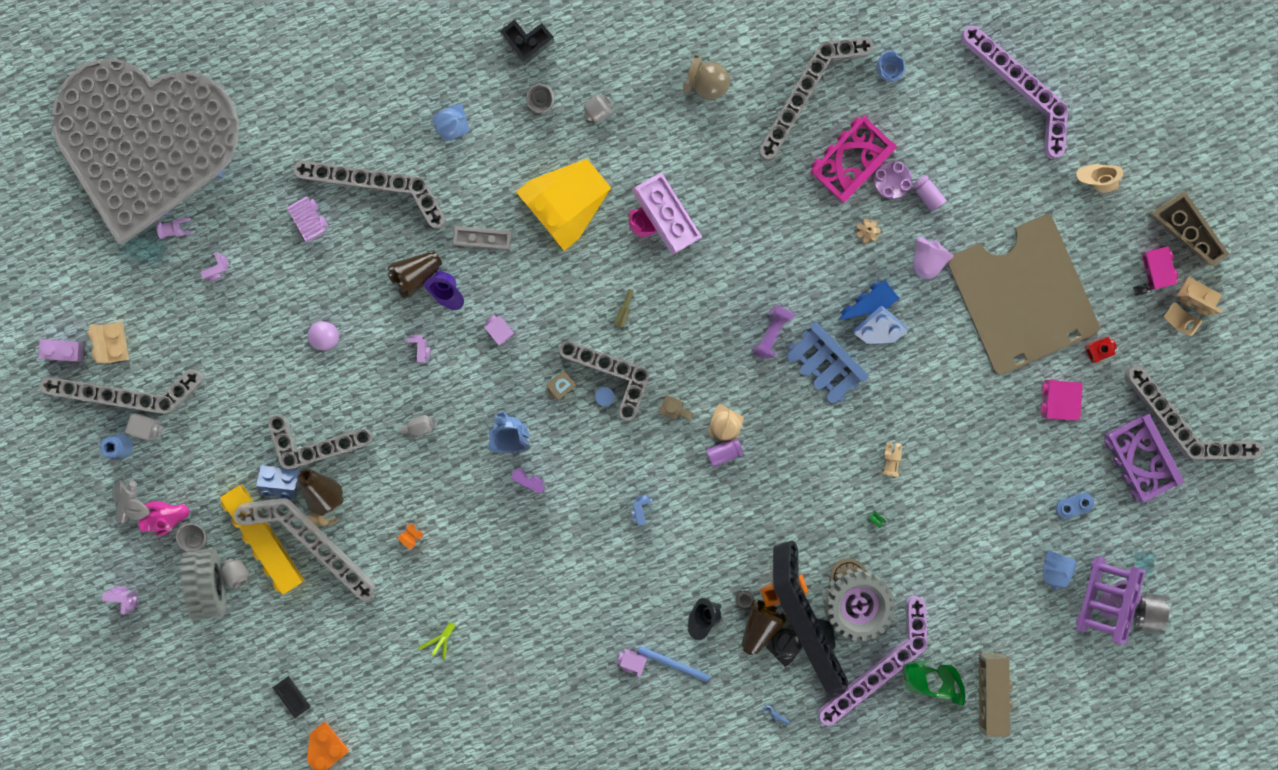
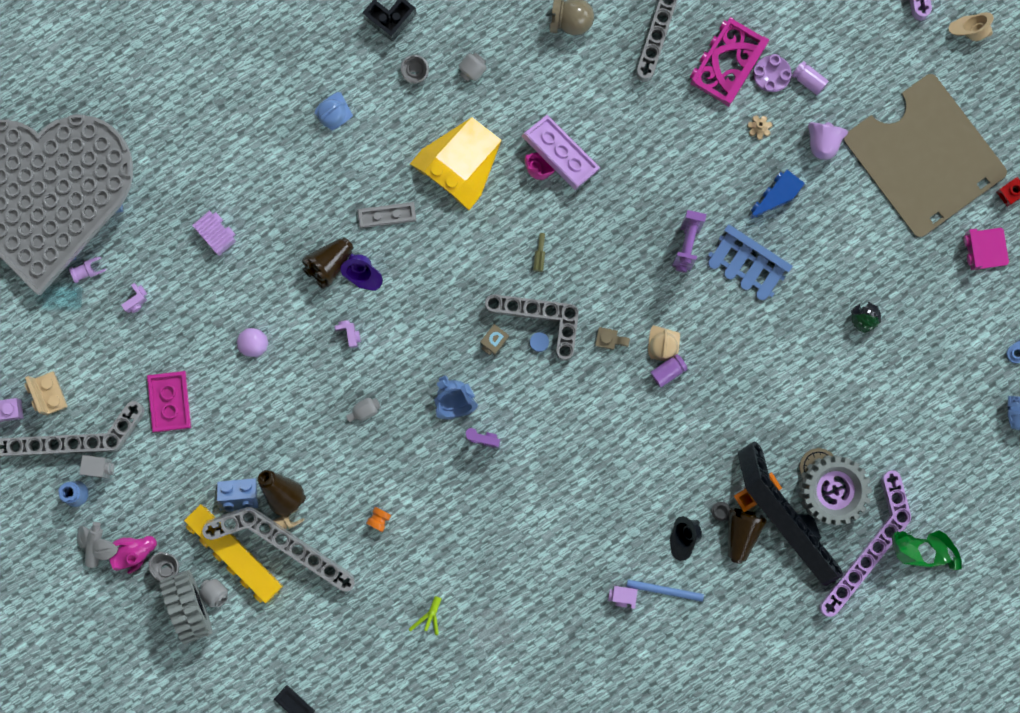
camera: 10 degrees left, 5 degrees down
(120, 594) = (116, 642): lavender bracket -> none
(229, 376) = (169, 401): none -> dark pink tile
(318, 454) = (268, 452): light grey beam -> none
(369, 183) = (267, 186): light grey beam -> none
(498, 329) = (422, 299): lavender brick -> none
(638, 514) = (597, 448): medium blue bracket -> none
(776, 715) = (778, 619): medium blue hand -> none
(784, 646) = (771, 548): black piece -> none
(876, 519) = (833, 404): green bush -> none
(880, 327) = (793, 216): medium blue plate -> none
(892, 460) = (834, 342): tan piece -> none
(928, 443) = (866, 318): none -> piece
(994, 694) = (989, 550): dark tan brick -> none

